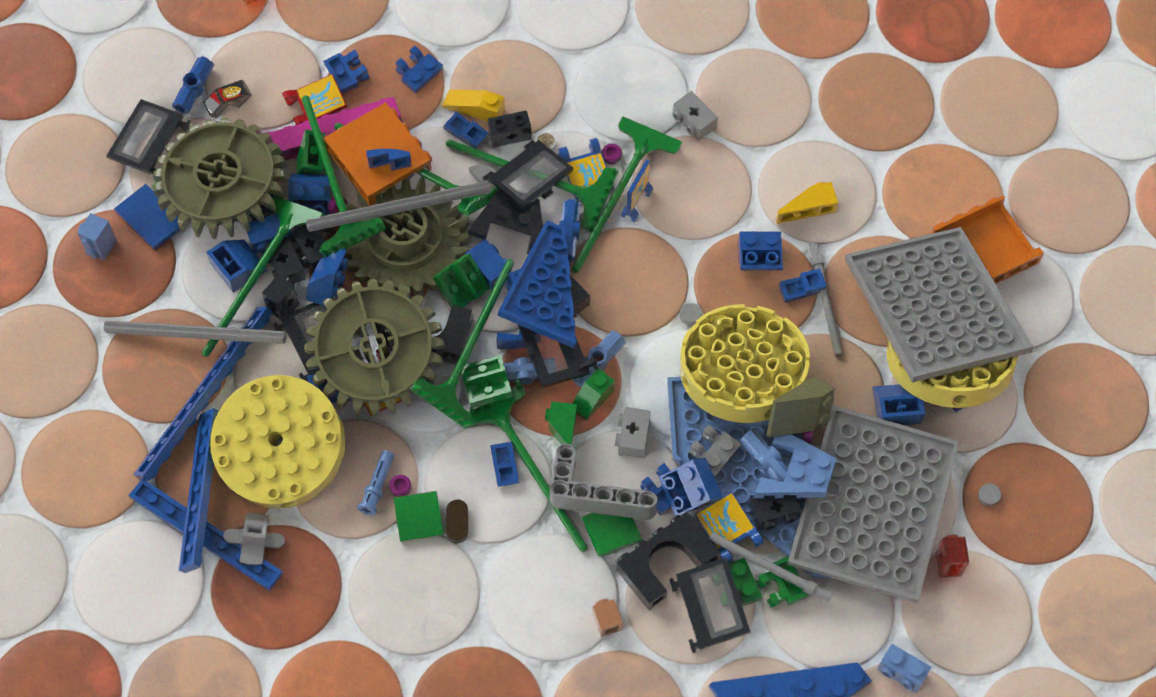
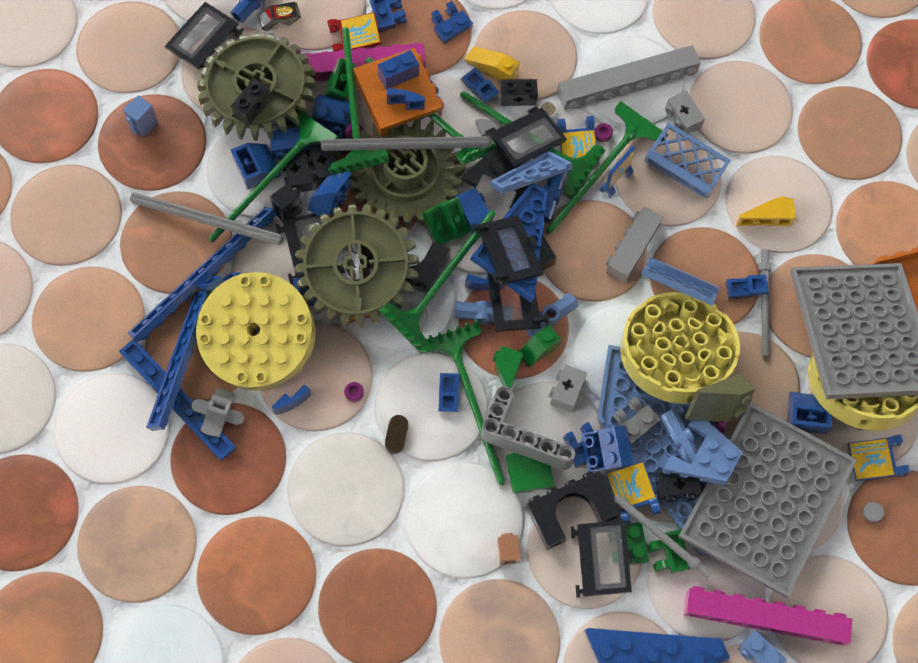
camera: 10 degrees right, 5 degrees up
(146, 218) = (186, 107): blue tile -> none
(219, 195) = (251, 102): none -> black brick
(220, 397) = (214, 281): none -> blue slope
(329, 512) = (286, 403): none -> blue slope
(374, 128) = (398, 69): none -> blue brick
(374, 491) = (330, 392): medium blue pin -> none
(418, 516) = (363, 422): green slope -> none
(486, 381) = (448, 316): green slope -> none
(538, 296) = (509, 250): none -> black piece
(542, 210) = (535, 170): none -> medium blue wing
(625, 90) = (628, 77): none -> light grey brick
(671, 265) = (634, 244): none -> light grey brick
(690, 313) = (641, 291): light grey tile -> none
(698, 178) = (682, 175): none -> medium blue fence
(729, 293) = (681, 281): none -> medium blue fence
(760, 250) = (716, 248): blue slope -> none
(901, 627) = (768, 617): none -> dark pink brick
(952, 556) = (827, 562): clear red brick -> none
(980, 438) = (876, 458): none -> flag

